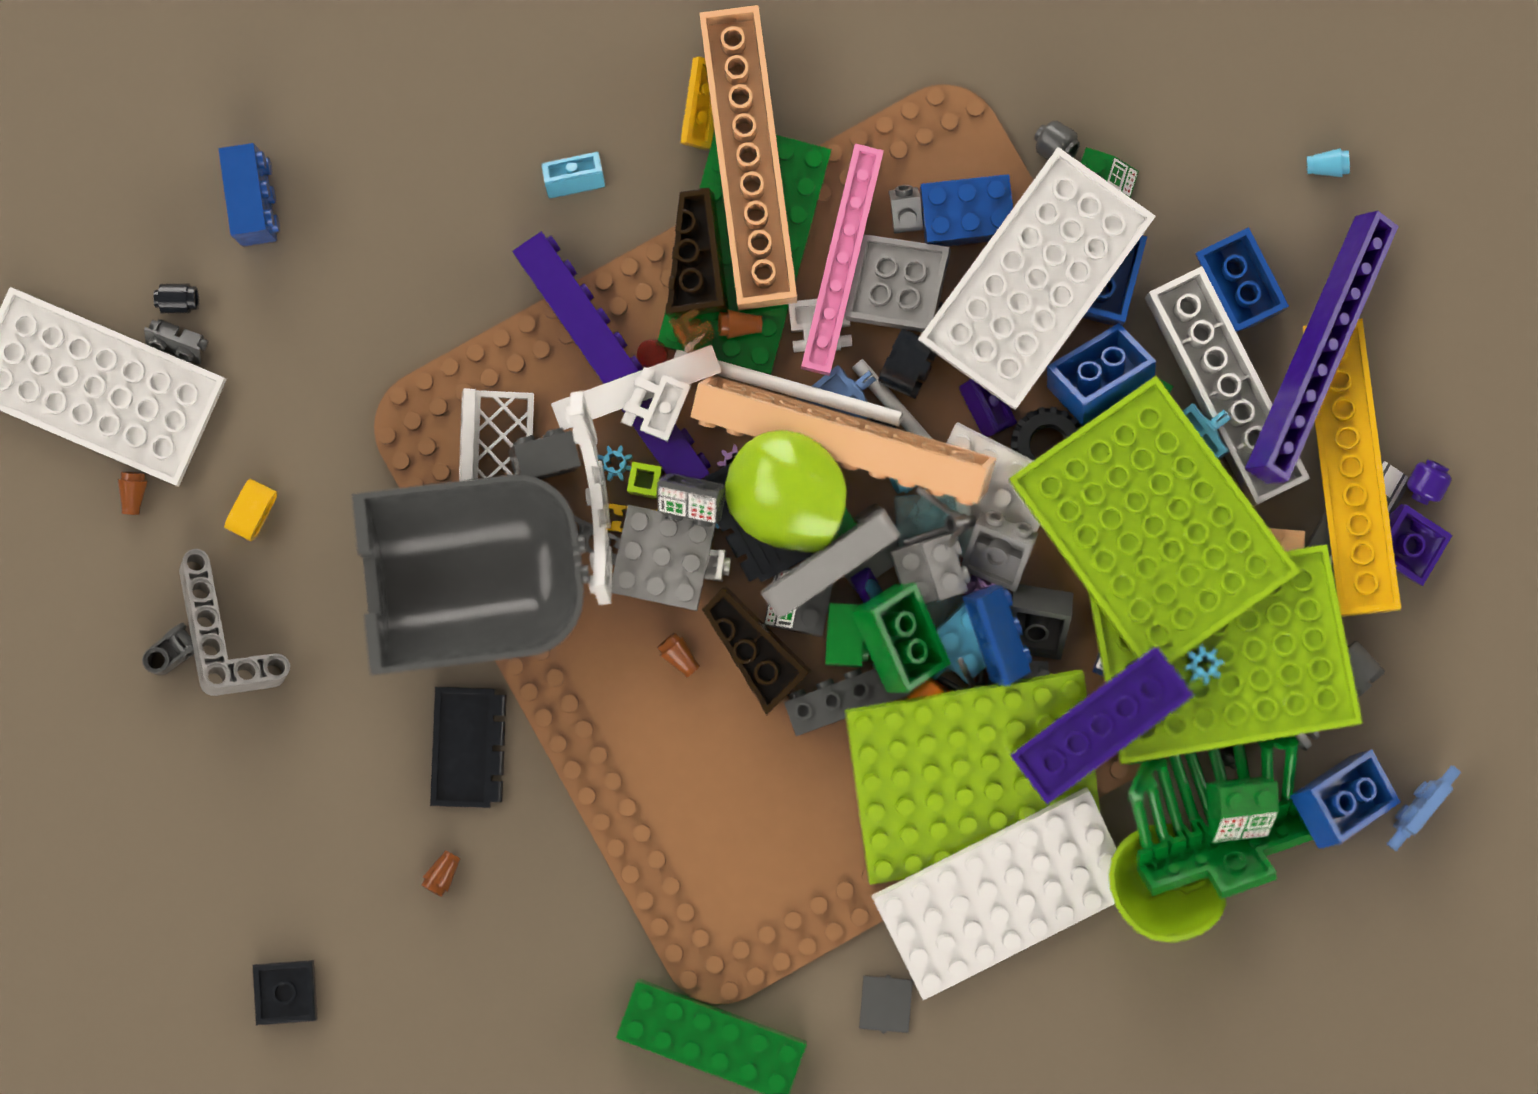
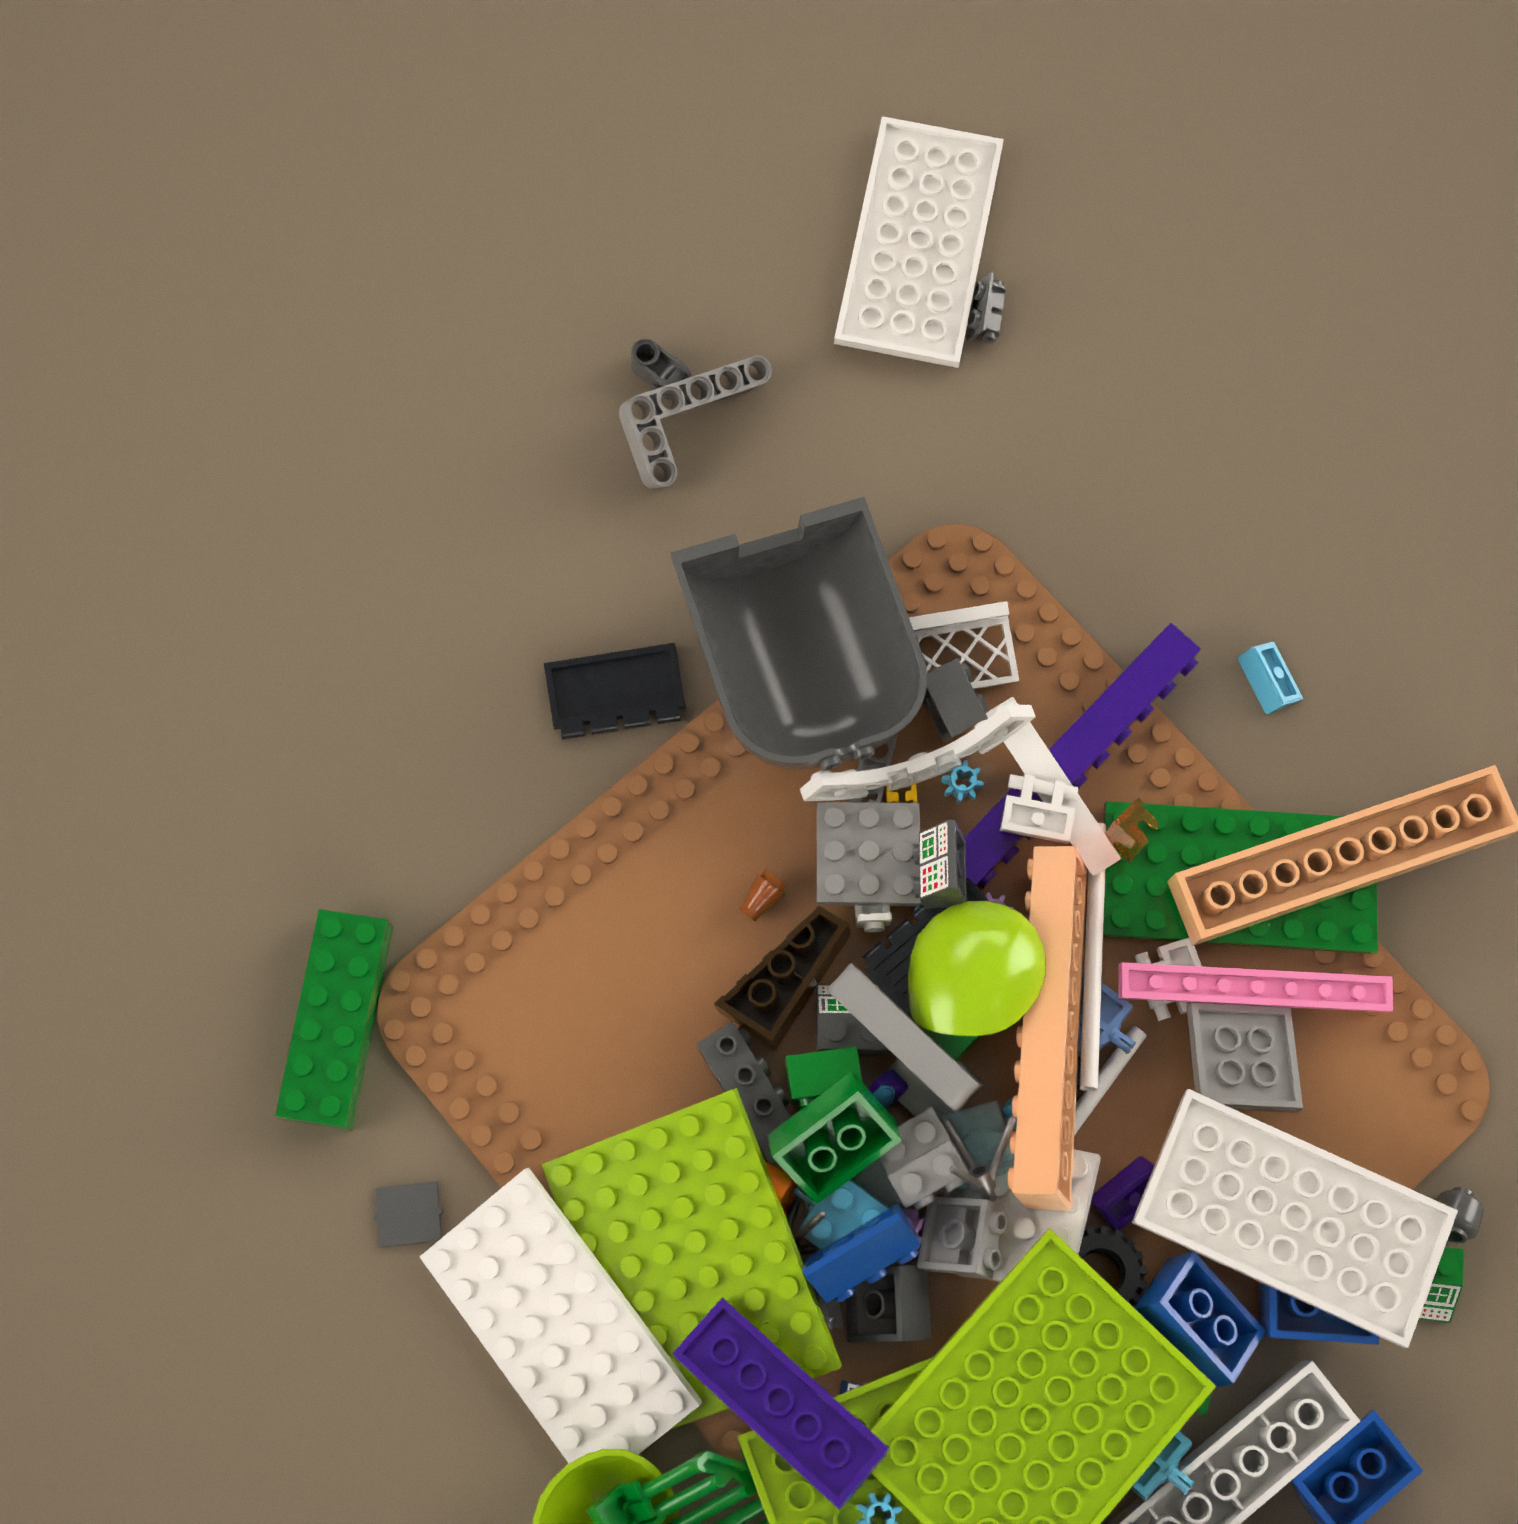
camera: 70 degrees right, 10 degrees down
(132, 489) = (818, 298): dark orange cone -> none
(176, 298) = (1031, 300): black brick -> none
(248, 194) = (1160, 344): blue brick -> none
(250, 509) = (825, 417): yellow beam -> none
(284, 992) = (316, 554): black plate -> none
(440, 875) = (471, 689): dark orange cone -> none
(644, 480) = (950, 808): lime brick -> none
(651, 353) = (1096, 797): clear red tile -> none
(697, 257) = (1217, 821): dark brown wedge -> none
(698, 117) = (1363, 795): yellow plate -> none
(738, 324) = (1152, 884): dark orange cone -> none
(906, 209) = (1331, 1051): bracket -> none
(907, 364) = (1153, 1086): black brick -> none
(964, 209) = (1351, 1117): blue brick -> none

